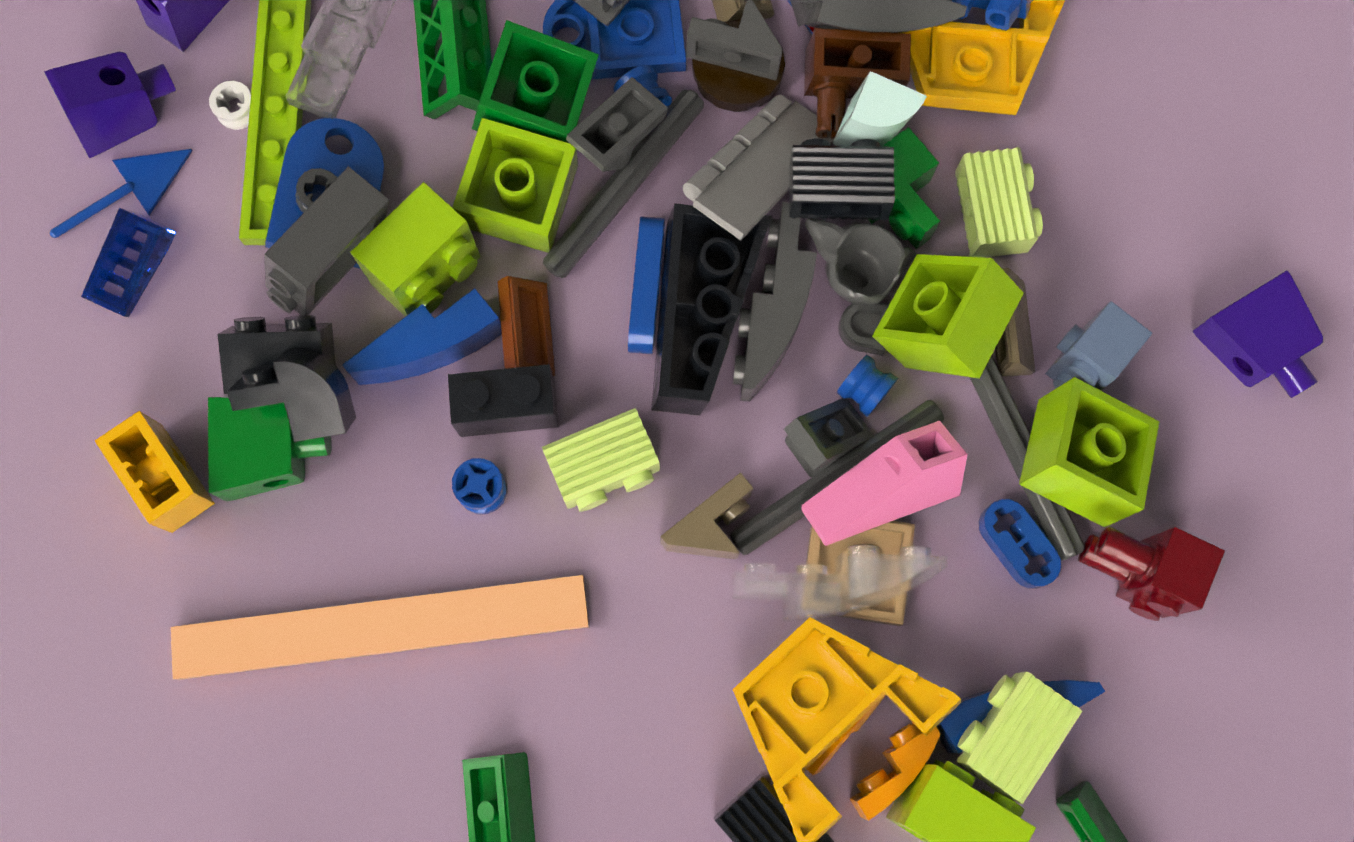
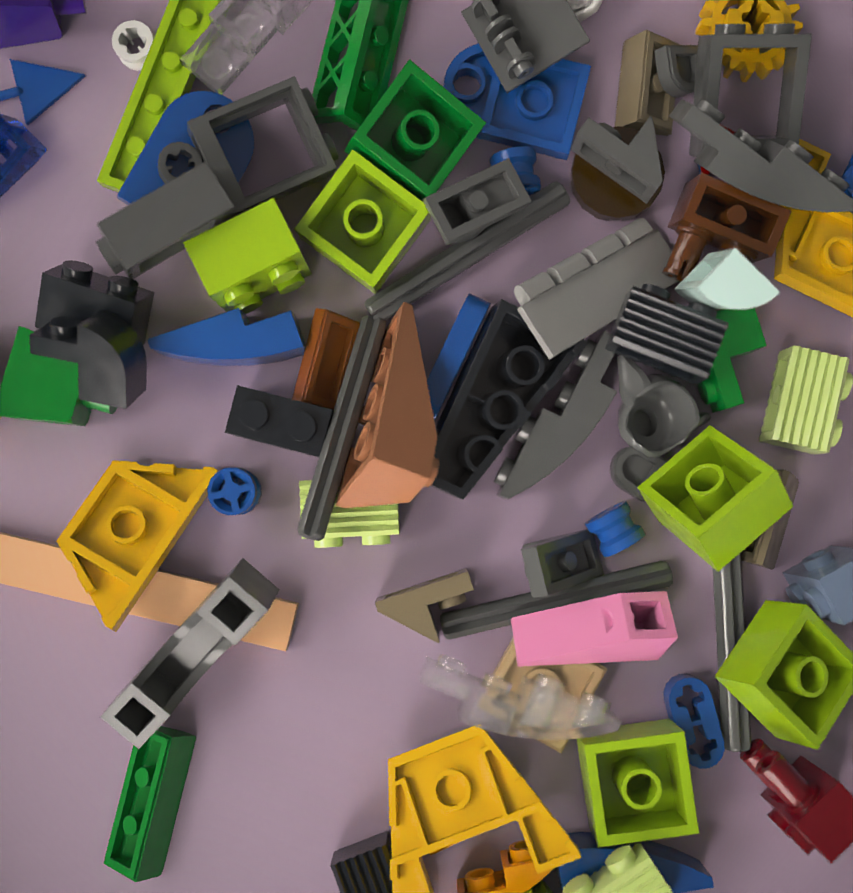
camera: 25 degrees right, 10 degrees up
(387, 560) = (129, 530): none -> yellow wing
(419, 105) = (302, 111): none -> dark grey window
(492, 655) = (191, 650): none -> dark grey arch
(565, 383) = (341, 429): none -> dark grey axle
(617, 354) = (399, 431): none -> nougat wedge
(987, 618) = (638, 783): none -> lime brick

